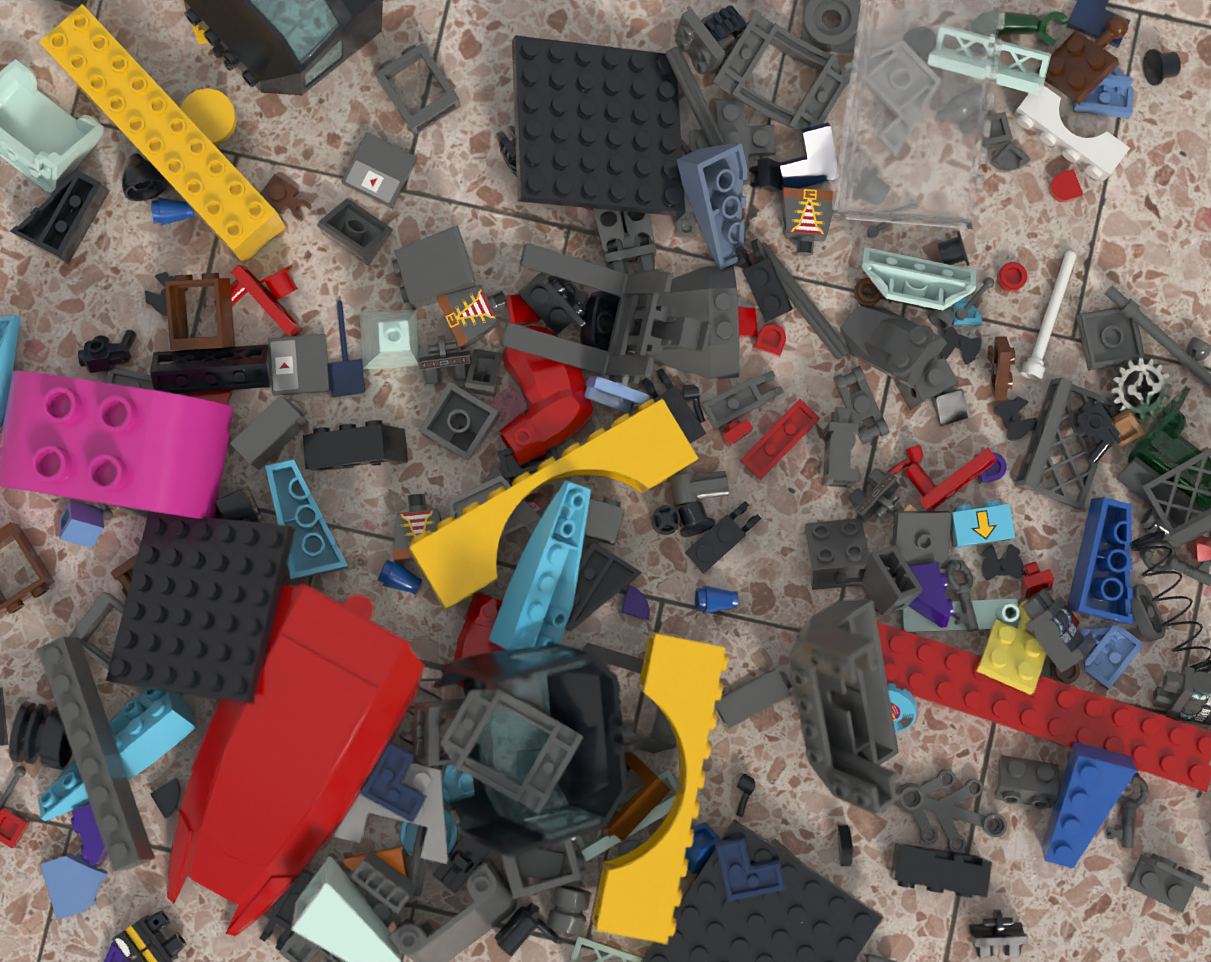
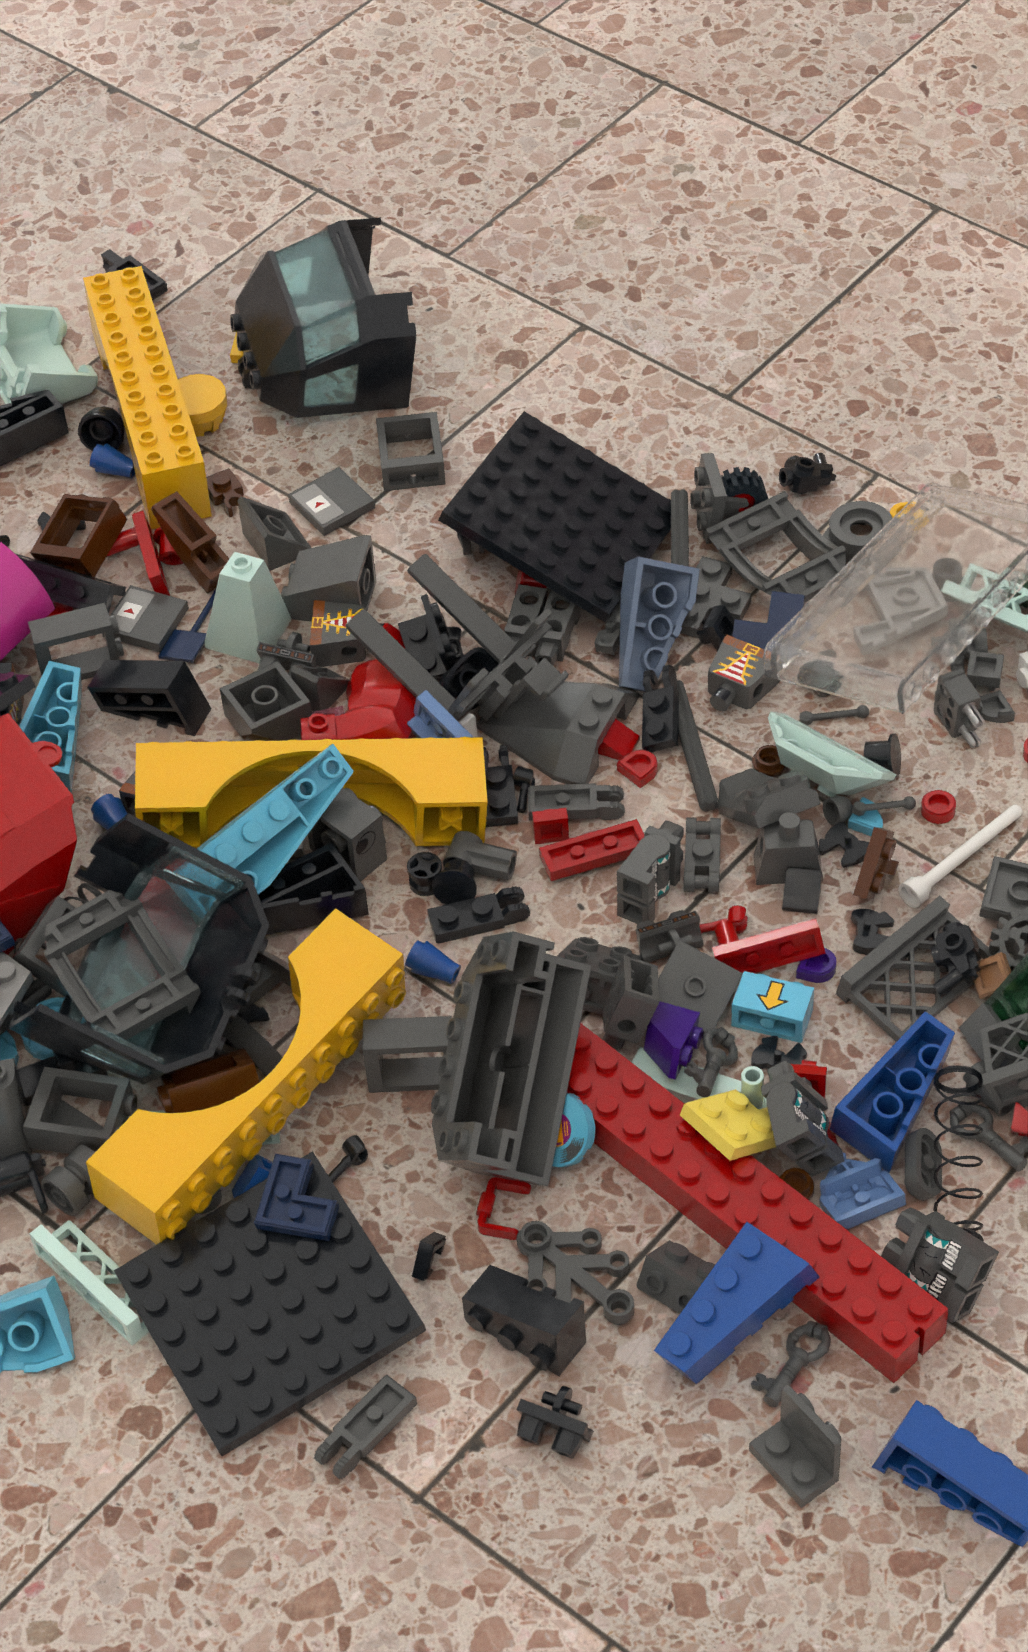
camera: 30 degrees right, 35 degrees down
(301, 281) = (191, 540): none -> reddish brown slope
(998, 182) = (958, 706): none -> dark grey piece

